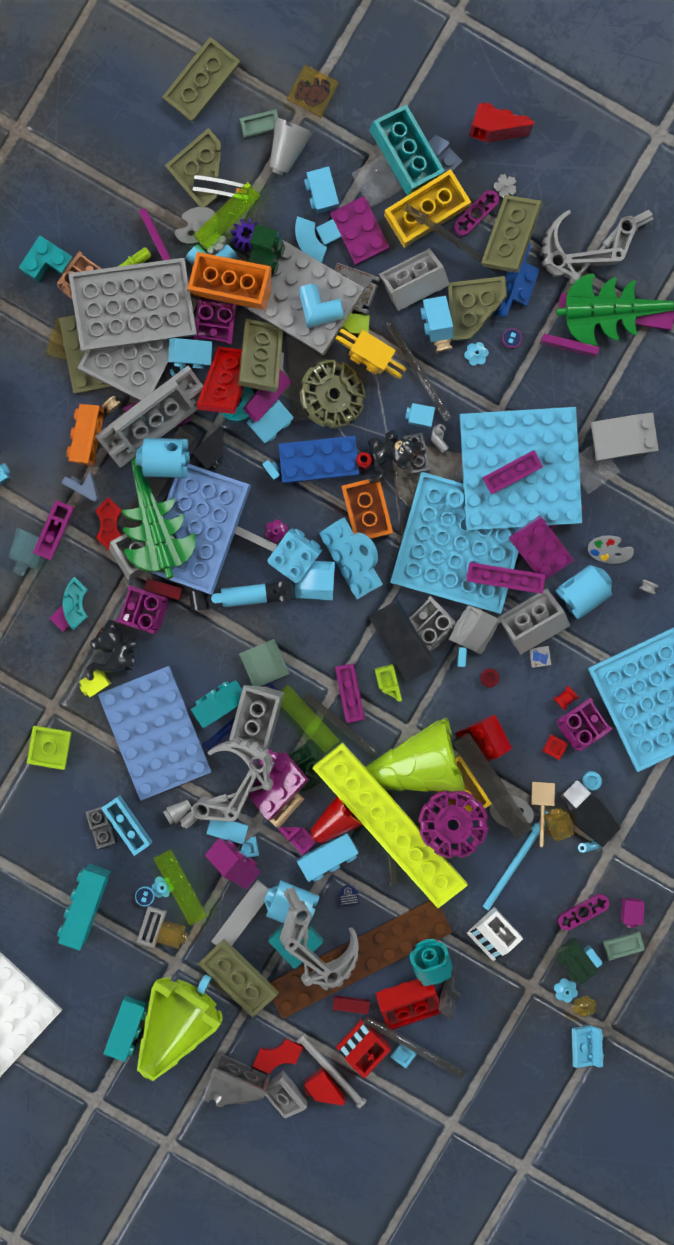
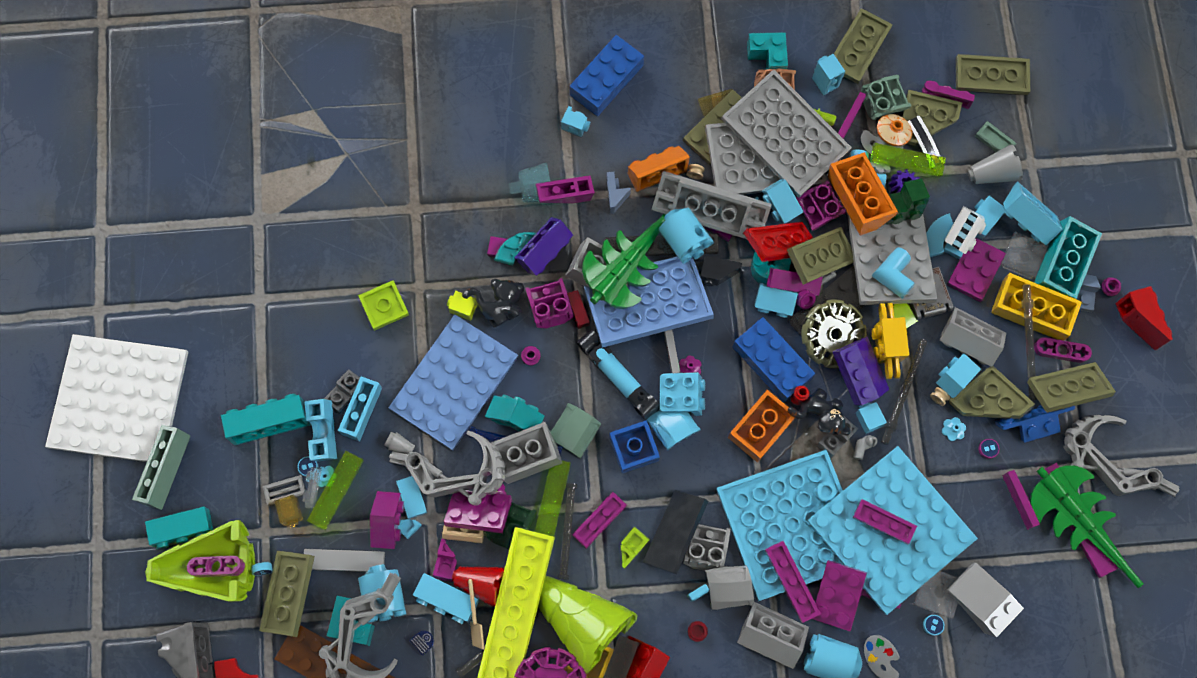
camera: 50 degrees right, 15 degrees down
(66, 1013) = (161, 467): none -> sand green brick
(90, 580) = (544, 246): none -> dark purple brick
(94, 176) = (861, 44): none -> olive plate
(103, 226) = (828, 74): none -> medium azure brick
(108, 514) = (606, 227): red tile -> none
(113, 861) = (320, 416): none -> medium azure arch
(157, 192) = (884, 97): none -> sand green slope
(171, 909) = (313, 479): none -> clear plate
(172, 1024) = (223, 569): none -> magenta beam
(181, 651) = (530, 361): none -> magenta plate
(190, 134) = (947, 92): none -> magenta hinge
(194, 214) = (894, 130): none -> tan dish
(272, 469) = (738, 328): medium azure plate -> none
(287, 396) = (805, 299): none -> magenta tile
(311, 626) = (634, 446): none -> blue brick
(312, 91) = (1051, 161): tile -> none
(323, 218) = (965, 229): none -> white slope
(348, 148) = (1032, 214): none -> medium azure slope
(352, 557) = (715, 440): medium azure plate -> none
(369, 849) = (476, 628): none -> tan piece
(379, 395) = (861, 371): none -> dark purple slope
(456, 124) = (1115, 283): none -> magenta plate
(505, 185) = (1102, 358): light grey plant -> none
(540, 656) = (747, 662): light grey tile -> none
(614, 489) = (933, 625): none -> tile

